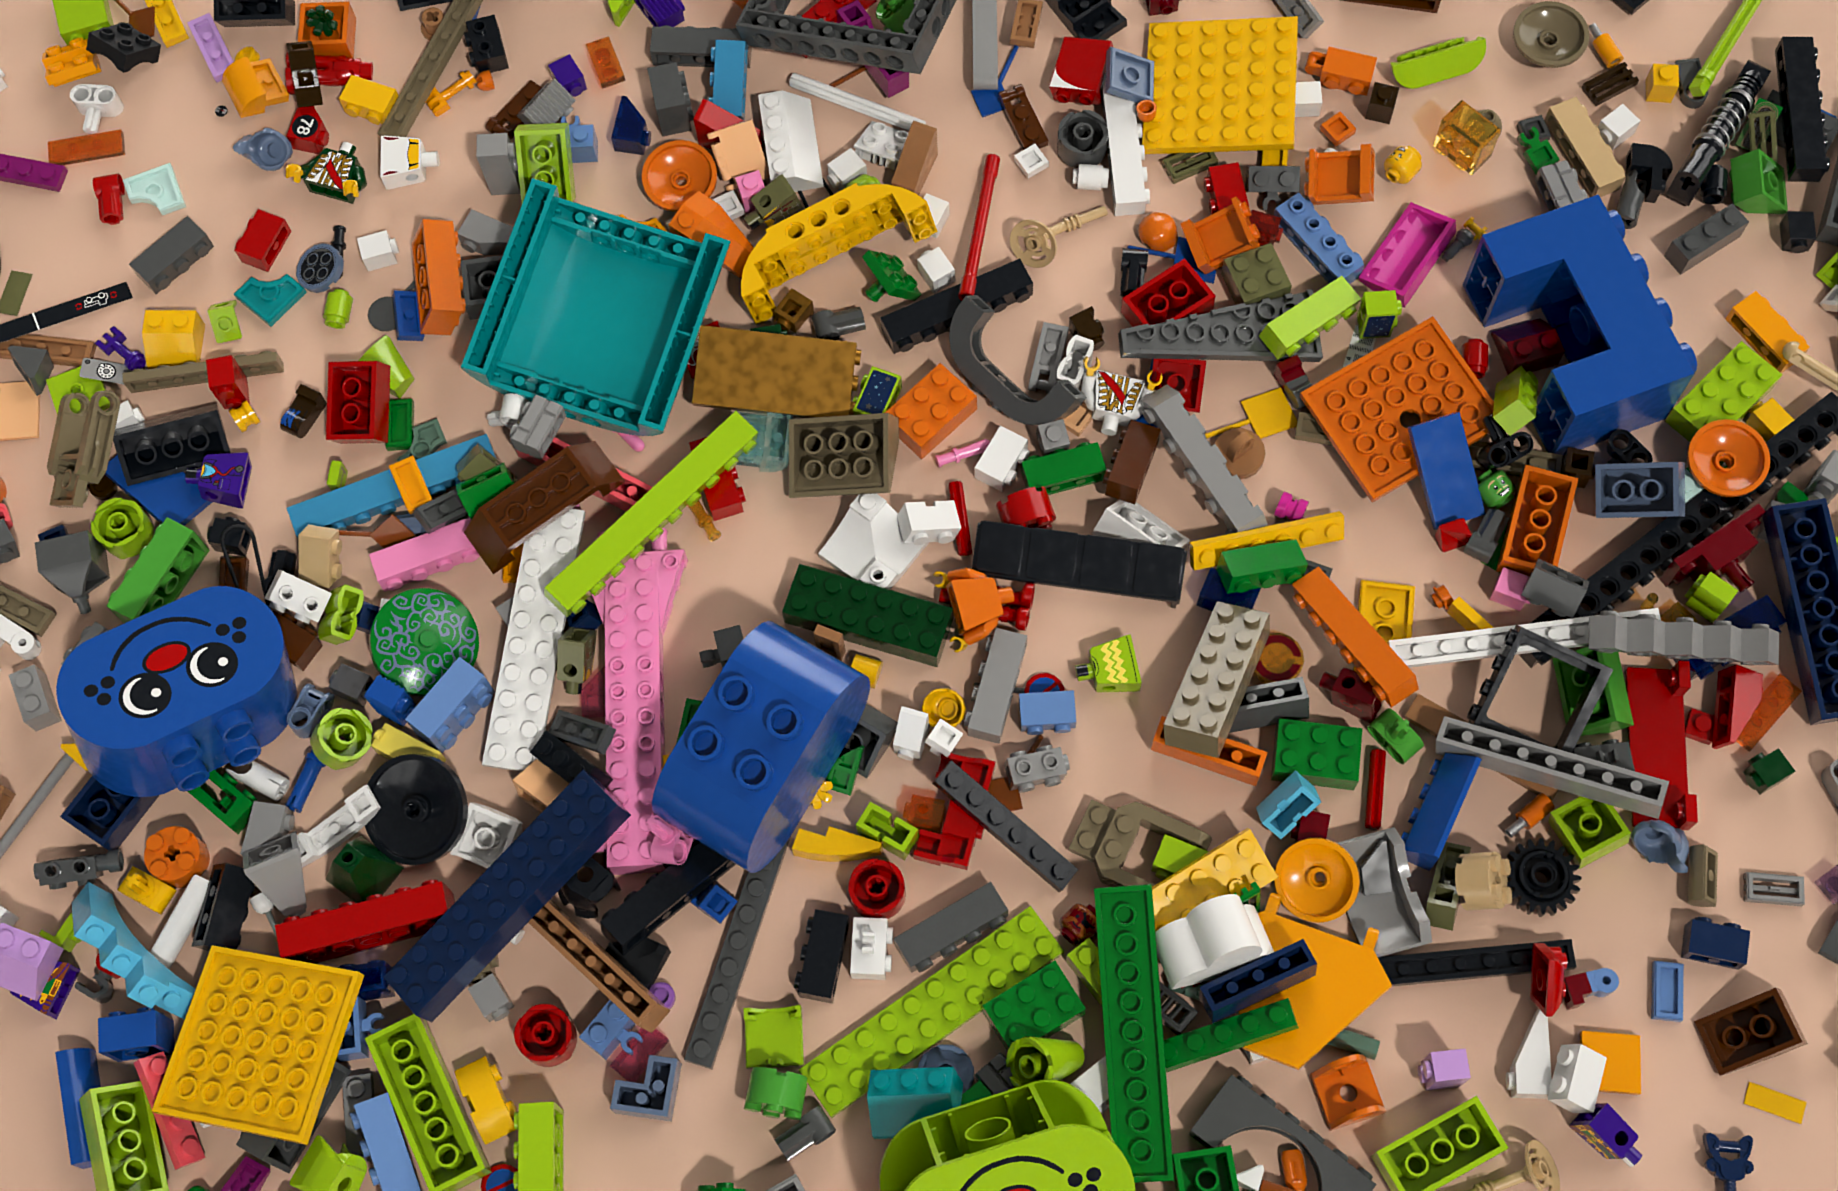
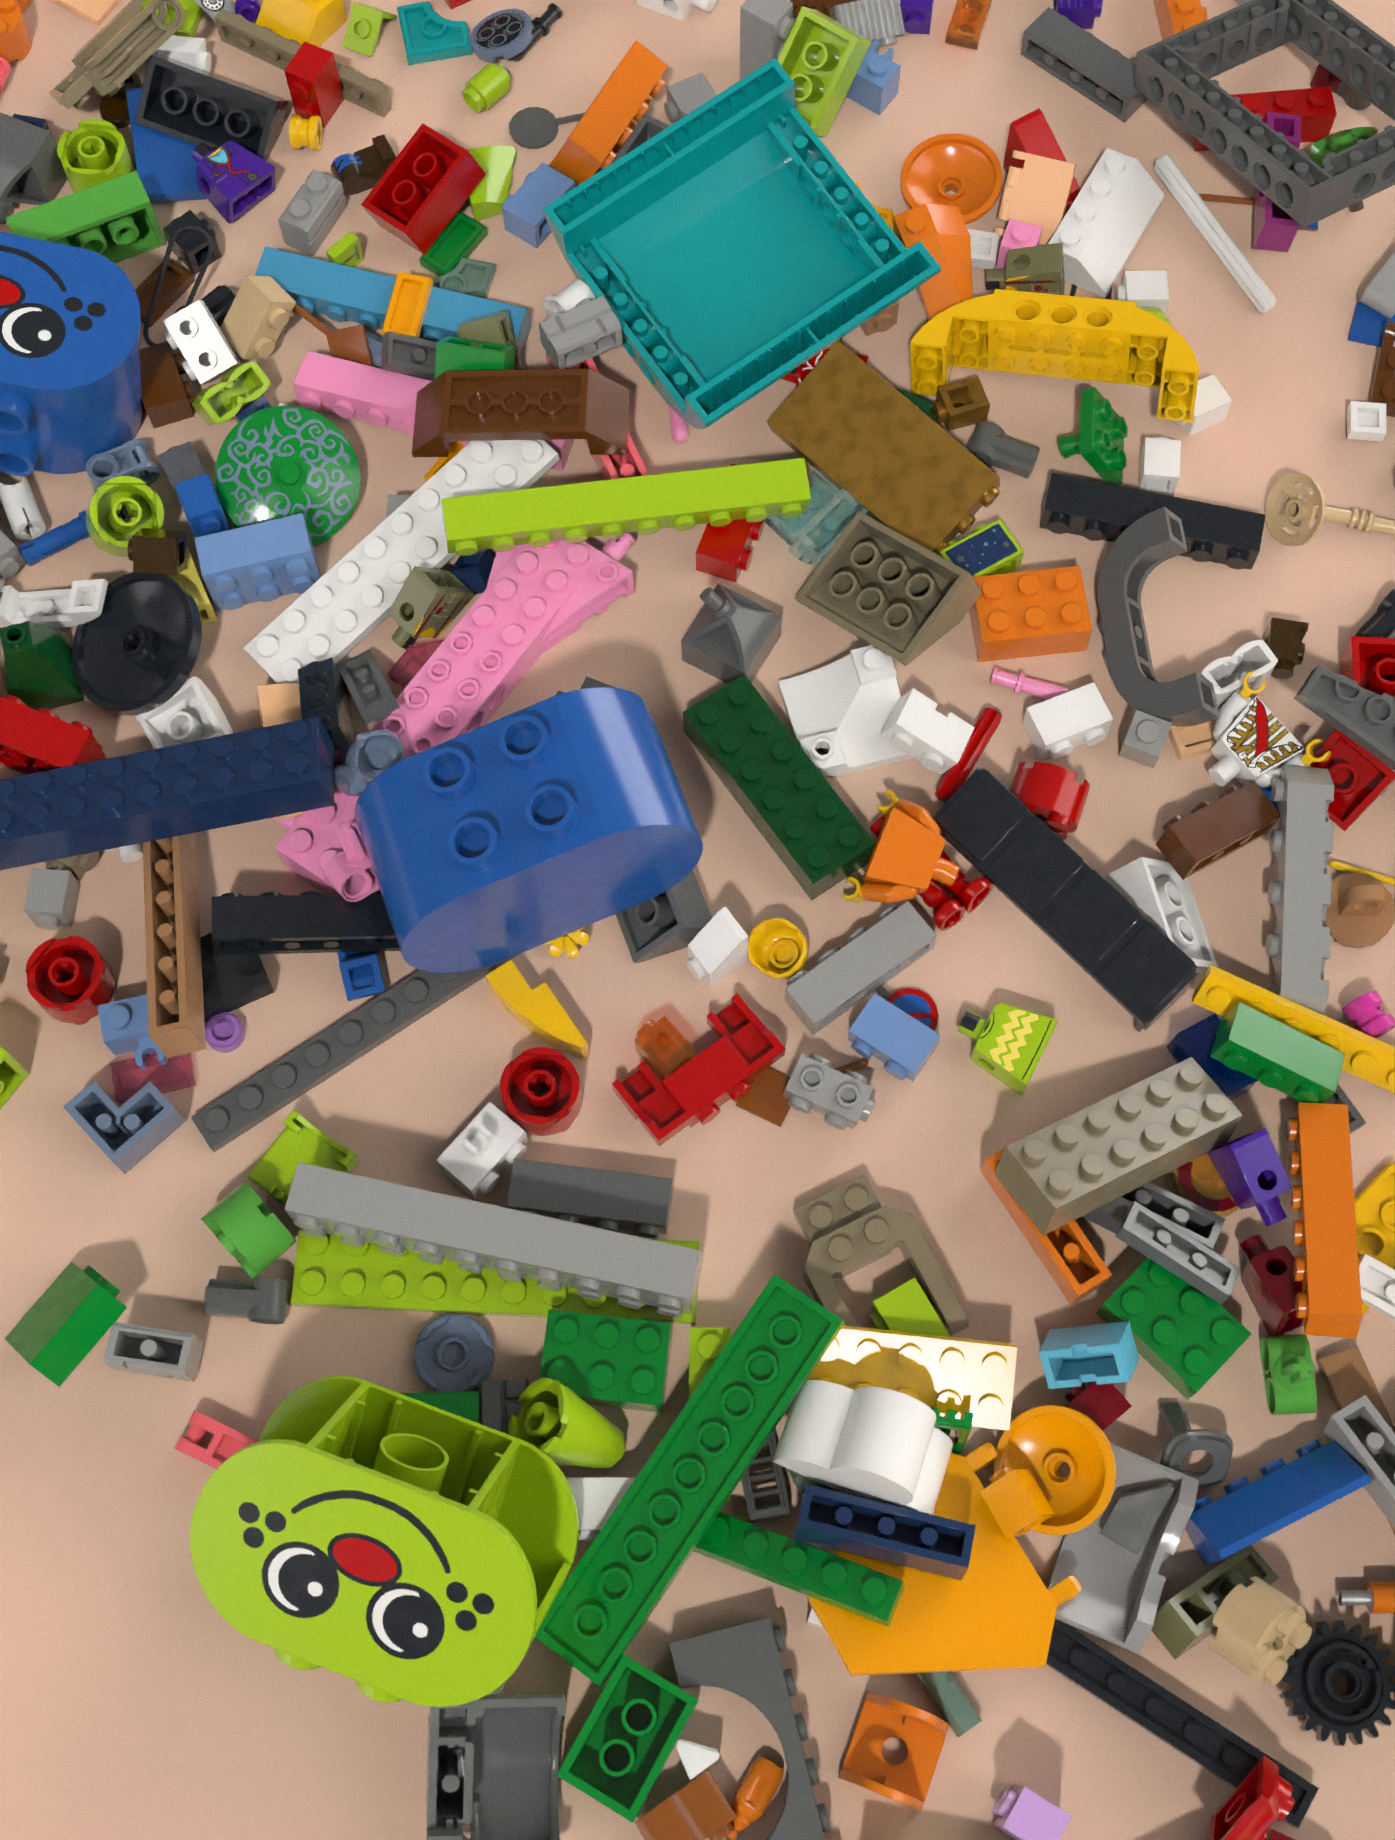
camera: 35 degrees right, 0 degrees up
(294, 464) = (312, 212): none -> light grey brick
(378, 250) = (574, 55): white brick -> none
(386, 743) = (158, 551): none -> dark brown brick
(406, 316) = (549, 138): blue plate -> none
(434, 361) = (524, 210): none -> medium blue piece
(585, 894) = (236, 860): black piece -> none
(630, 129) = (937, 101): clear blue slope -> none
(630, 775) = (367, 759): none -> sand blue hair
(671, 98) = (1006, 91): dark grey brick -> none
(705, 521) = (685, 560): clear yellow piece -> none
(729, 76) = (1092, 109): dark azure brick -> none
(770, 547) = (730, 635): none -> dark grey piece
(822, 956) = (425, 1119): black brick -> none
(829, 641) = (709, 782): medium nougat tile -> none
(845, 771) = (614, 936): green tile -> none
(868, 667) = (727, 844): yellow brick -> none
(876, 825) = (600, 1025): lime piece -> none
(881, 142) = (1208, 296): white hinge -> none
(910, 1094) = (386, 1348): teal slope -> none
(916, 158) = (1233, 329): medium nougat slope -> none
(923, 989) = (494, 1239): none -> light grey brick
(943, 738) = (749, 980): white tile -> none
(990, 173) = (1304, 405): red piece -> none
(1005, 826) = (738, 1129): black plate -> none
(1048, 356) = (1215, 642): light grey plate -> none
(1064, 468) = (1131, 783): green brick -> none
(1078, 924) = (732, 1302): dark red head -> none
(1293, 713) = (1178, 1252): none -> dark grey plate
(1297, 641) = (1253, 1174): none -> dark purple torso
(1310, 912) = (1016, 1501): none -> light orange brick
(1372, 811) = (1188, 1440): none -> dark grey piece
(1375, 789) = (1226, 1406): red axle -> none

